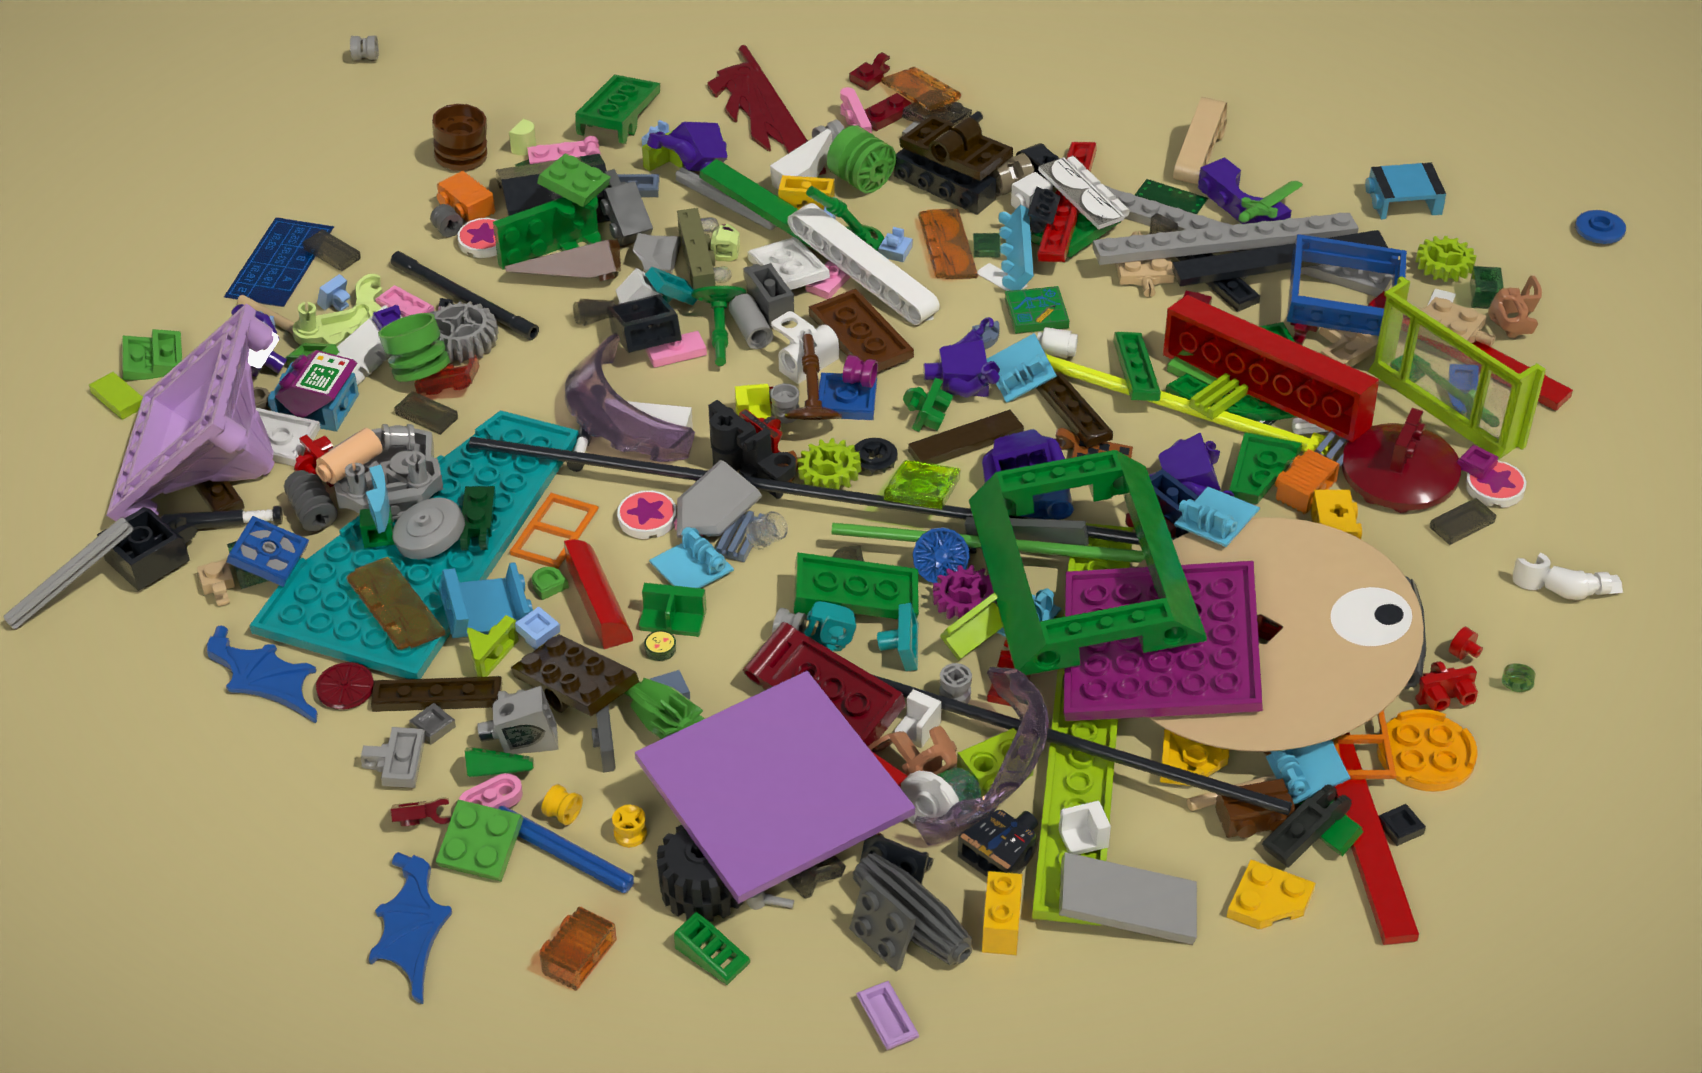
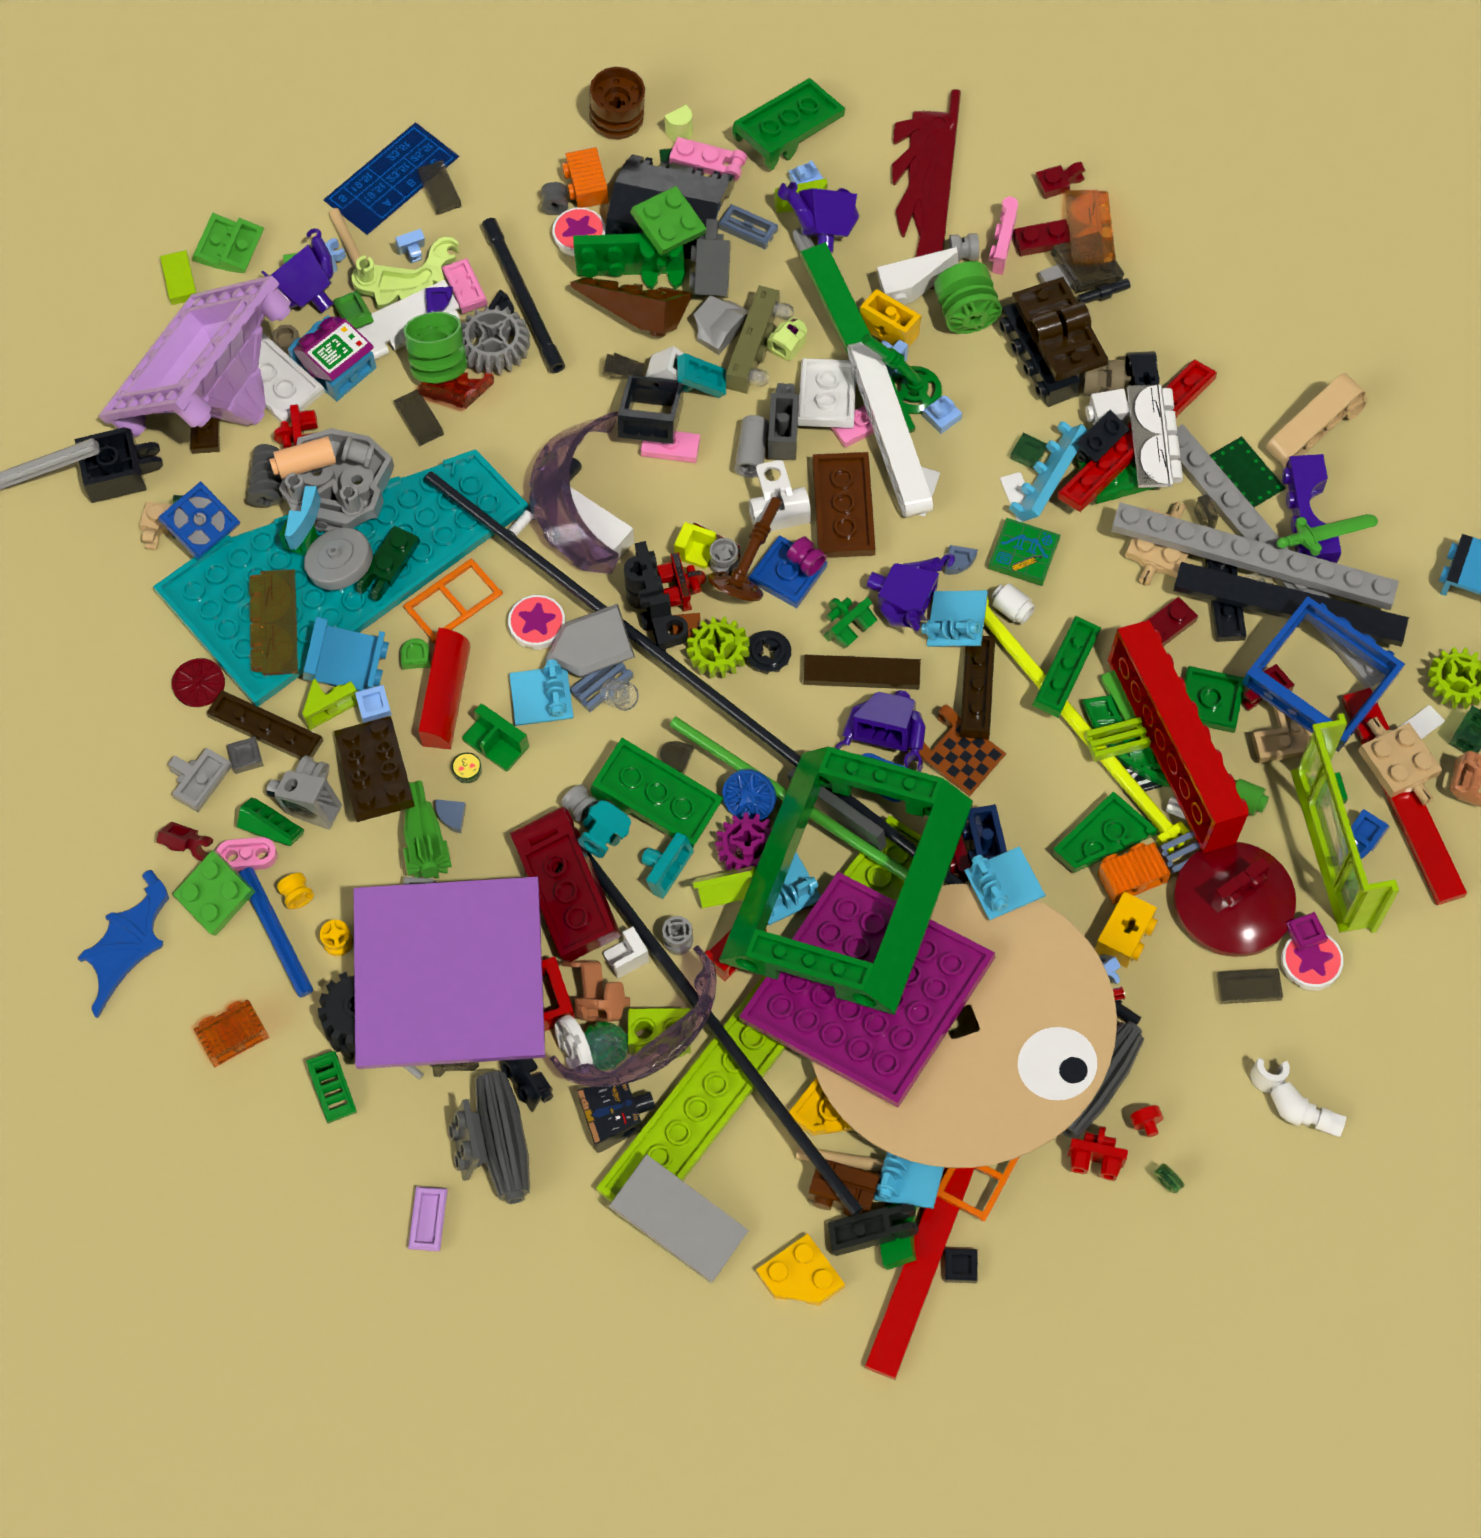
camera: 30 degrees right, 20 degrees up
(230, 518) = (191, 457): black piece -> none
(262, 673) = (143, 636): blue animal -> none
(603, 738) = (364, 843): dark grey plate -> none
(718, 297) = (736, 408): green dish -> none
(922, 484) = (782, 710): clear neon green tile -> none
(947, 244) = (994, 432): clear orange windscreen -> none
(1002, 913) = (570, 1177): yellow brick -> none
(1084, 828) = (681, 1138): white panel -> none
(1192, 463) = (1030, 811): dark purple torso -> none
(1429, 750) = (1039, 1206): light orange tile -> none

